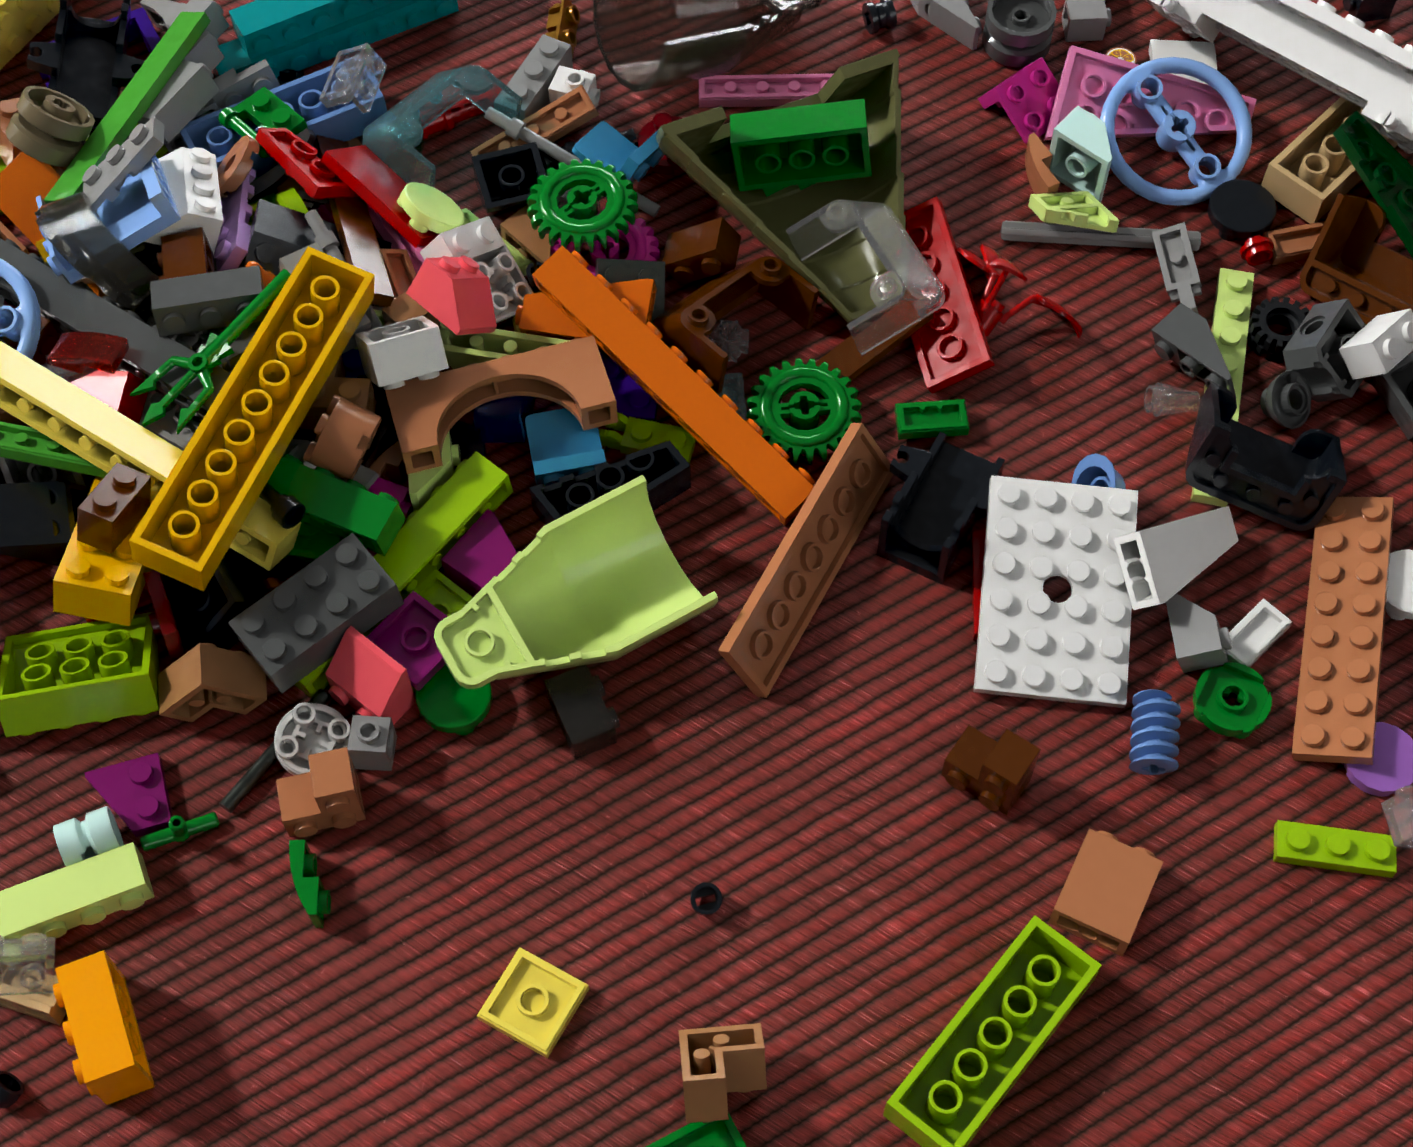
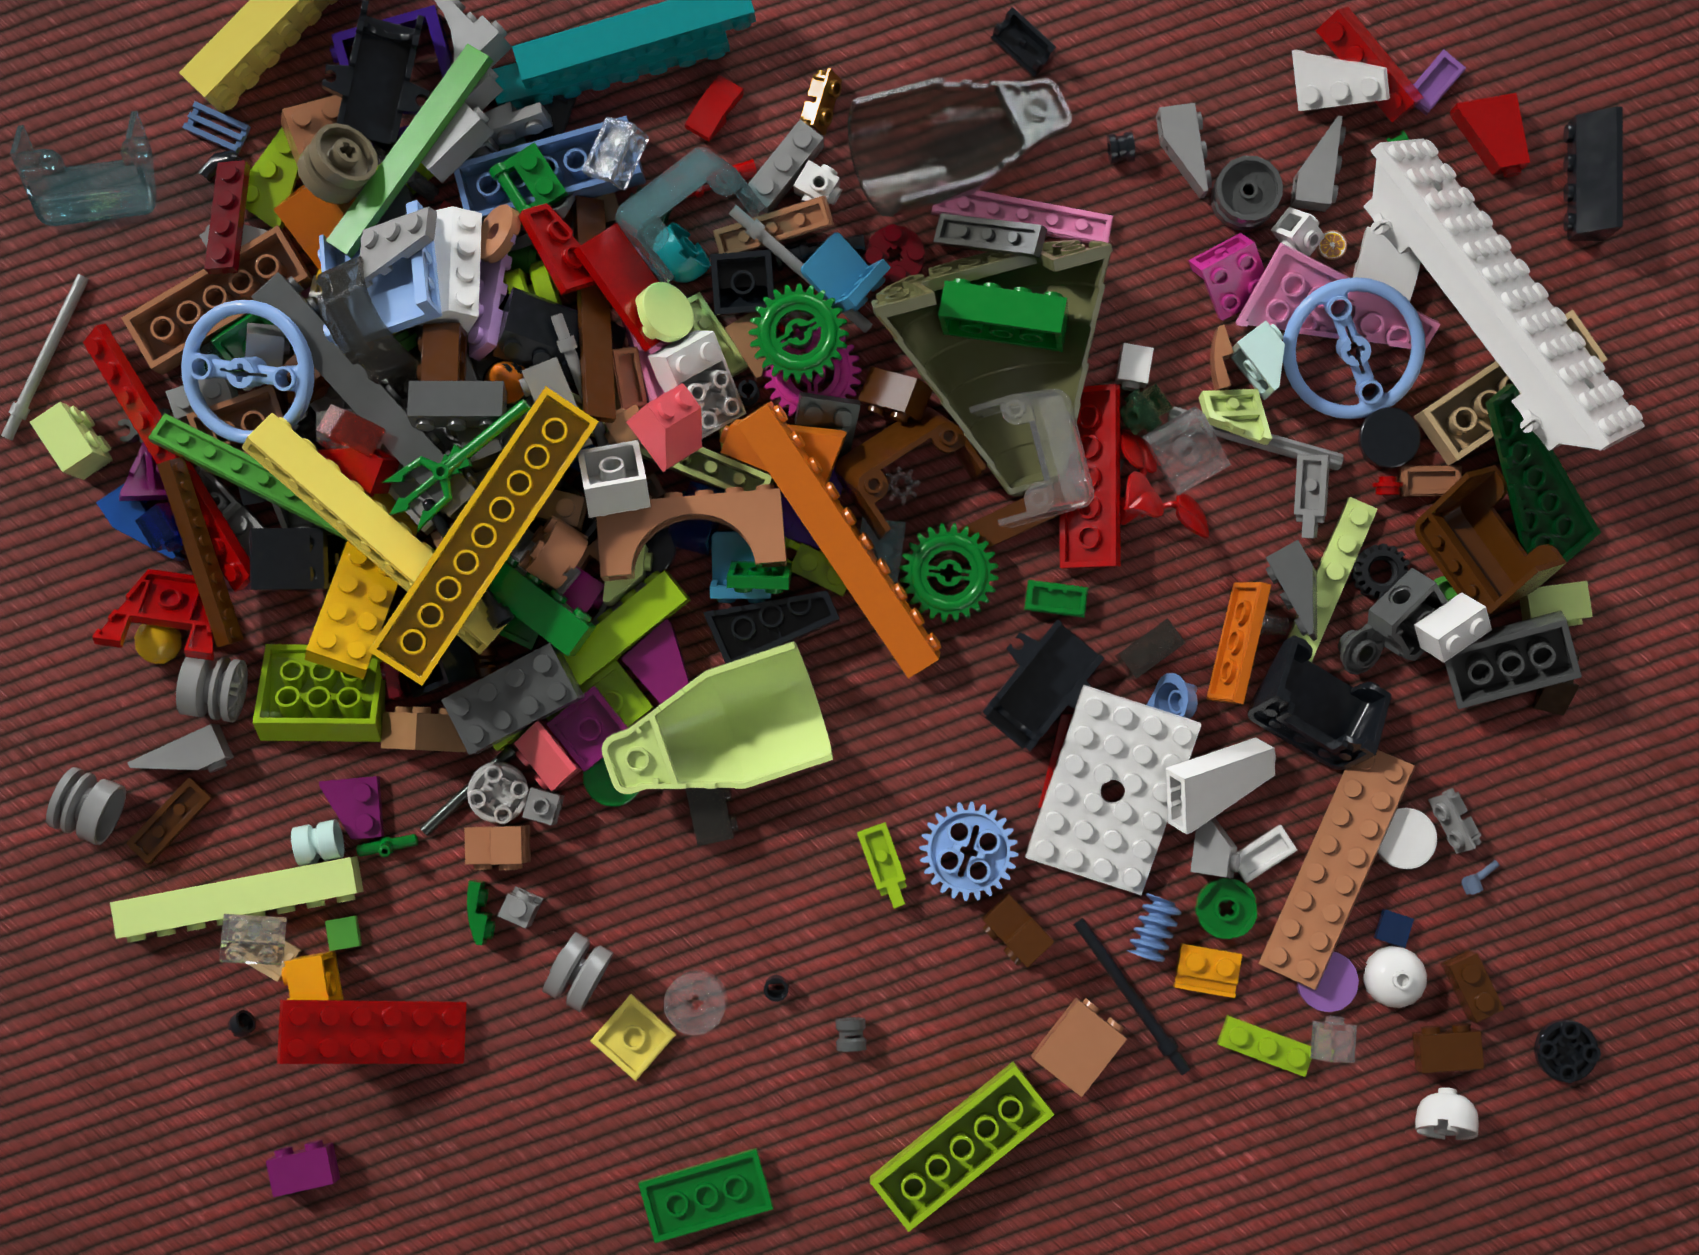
camera: 20 degrees right, 25 degrees up
(113, 508) = (360, 590): reddish brown brick -> none
(133, 948) = (343, 933): none -> bright green tile
(180, 1041) = (371, 1032): none -> red plate
(360, 867) = (520, 907): none -> light grey brick
(446, 920) = (575, 970): none -> light grey wheel
(450, 175) = (682, 257): none -> teal cylinder
(451, 49) = (712, 108): none -> red slope
(589, 436) = (745, 576): none -> green plate
(606, 954) = (683, 1015): none -> clear brick
(720, 1063) = (755, 1120): medium nougat brick -> none
(773, 89) = (990, 235): none -> dark grey plate
(806, 730) = (883, 862): none -> lime hinge
(807, 561) = (920, 717): nougat plate -> none
(814, 935) = (847, 1029): none -> dark grey wheel
(940, 698) = (995, 860): none -> light blue gear
(952, 187) = (1133, 366): none -> white brick
(974, 223) = (1144, 409): none -> clear green brick
(1036, 244) = (1186, 450): none -> clear brick
(1053, 444) = (1150, 649): none -> clear smoke brick
(1084, 36) = (1298, 231): none -> white brick
(1150, 414) = (1238, 642): none -> orange tile
(1213, 871) = (1166, 1044): none -> black bar
(1233, 776) = (1207, 970): none -> light orange plate

